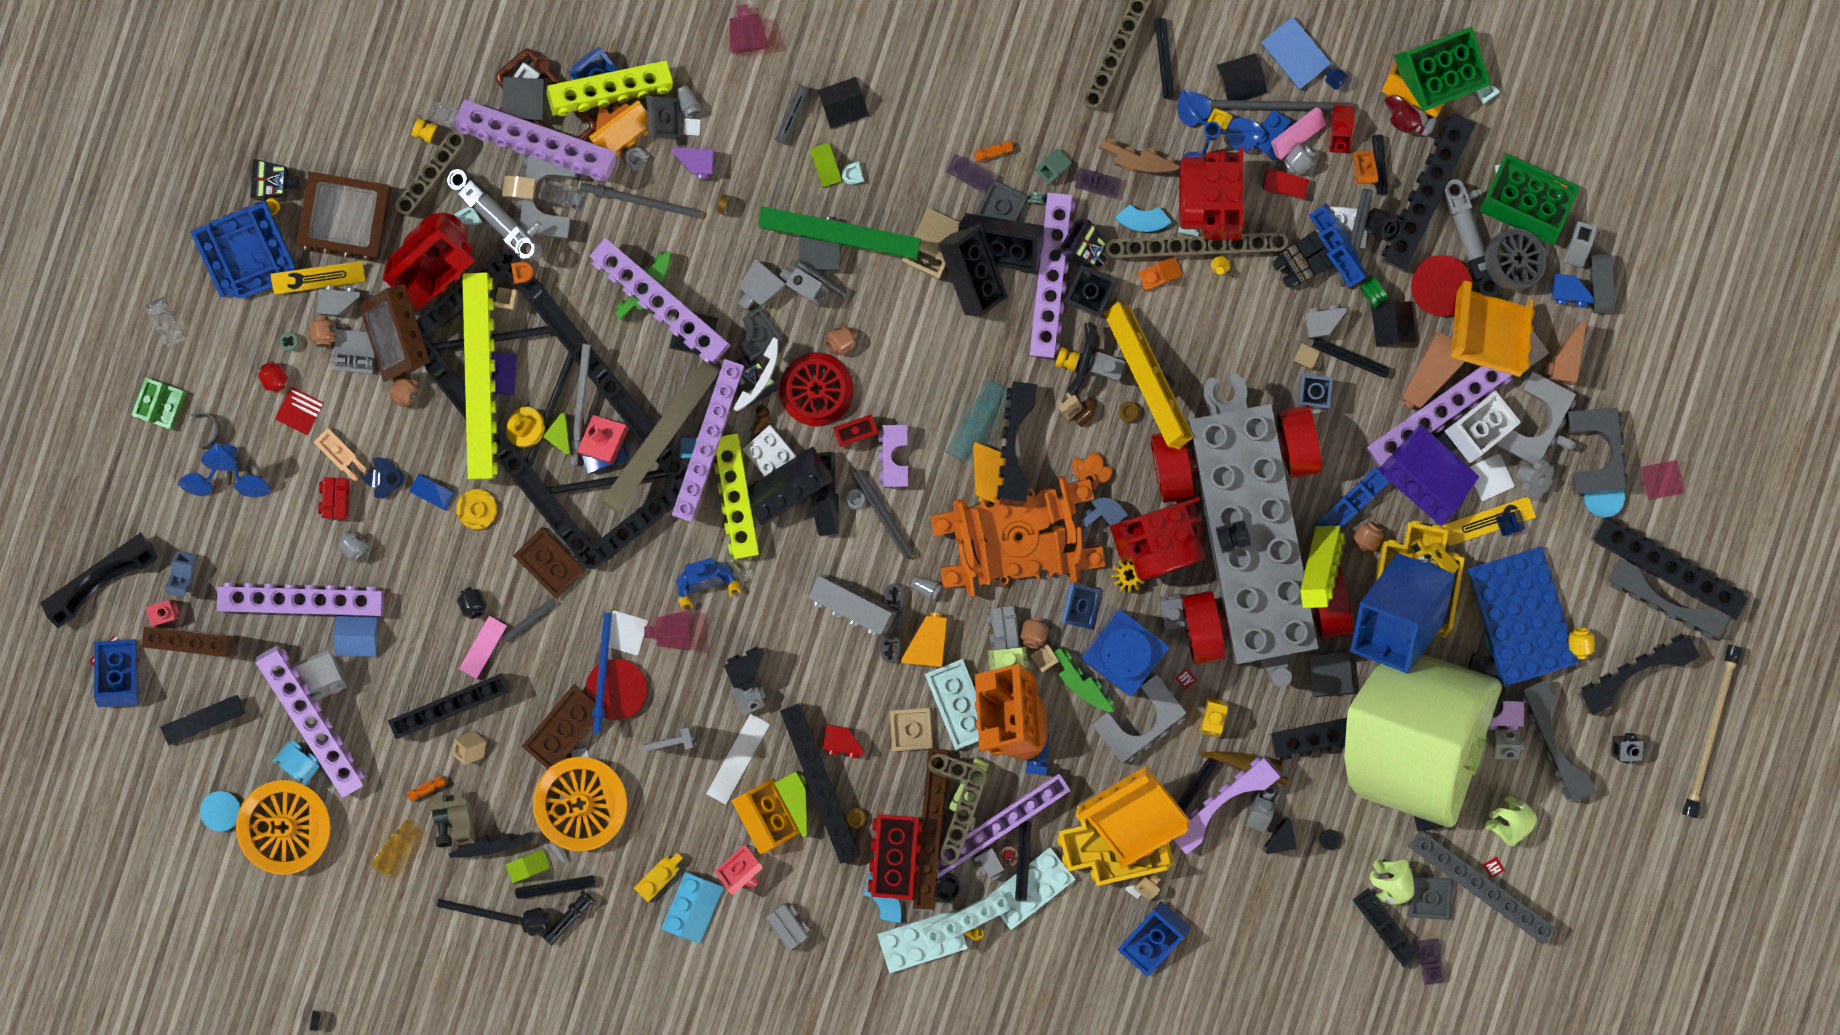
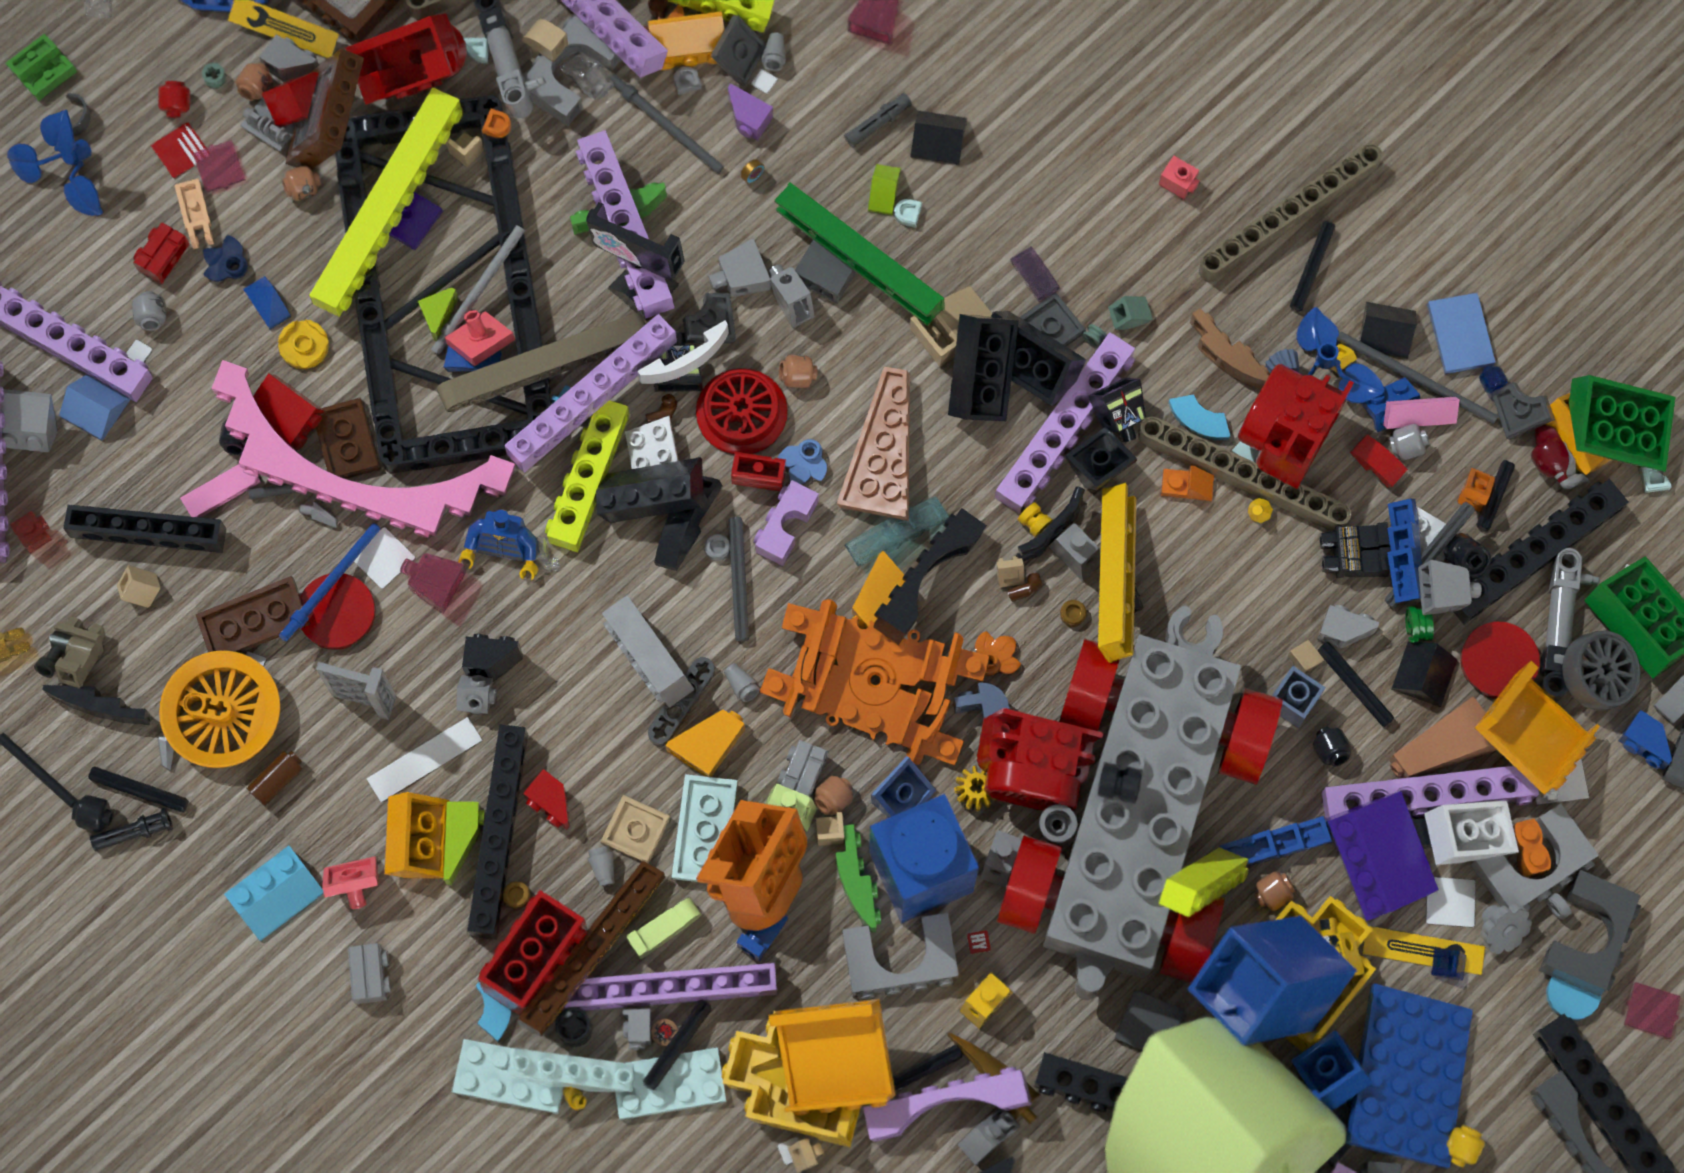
camera: 25 degrees right, 15 degrees down
(334, 408) = (219, 166): none -> clear pink piece
(361, 333) = (291, 100): none -> red slope
(362, 577) = (138, 351): none -> white sticker
(370, 750) = (31, 531): none -> clear red brick
(426, 788) = (66, 606): orange axle -> none
(495, 570) = (287, 410): none -> red brick
(525, 427) = (404, 282): yellow tile -> none
(528, 866) = (123, 749): lime slope -> none
(562, 626) = (318, 513): none -> light grey bar
(629, 587) = (410, 507): none -> bright pink arch
(645, 828) = (275, 777): none -> reddish brown brick
(658, 877) = (258, 840): yellow hinge -> none
(709, 324) = (658, 259): none -> black panel
(828, 283) = (817, 305): dark grey bar -> none
(881, 407) = (804, 466): none -> medium blue plate
(902, 765) = (602, 865): none -> light grey cone
(937, 378) = (880, 465): none -> nougat wing
(963, 805) = (641, 937): dark tan beam -> none
(993, 151) = (1073, 265): orange axle -> none
(1035, 42) = (1179, 177): none -> coral brick
(1098, 183) = (1168, 356): clear purple slope -> none
(1183, 147) = (1286, 357): none -> sand blue piece
(1205, 580) = (1064, 816): none -> light grey plant
(1341, 128) = (1471, 435): red slope -> none
(1356, 412) = (1332, 746): none -> black head
(1367, 93) = (1520, 412): none -> dark grey tile
(1380, 261) = (1445, 587): none -> light grey torso
(1470, 645) = (1332, 1071): none -> blue brick
(1530, 418) = (1532, 857): none -> orange brick
(1566, 361) = (1602, 814): nougat slope -> none

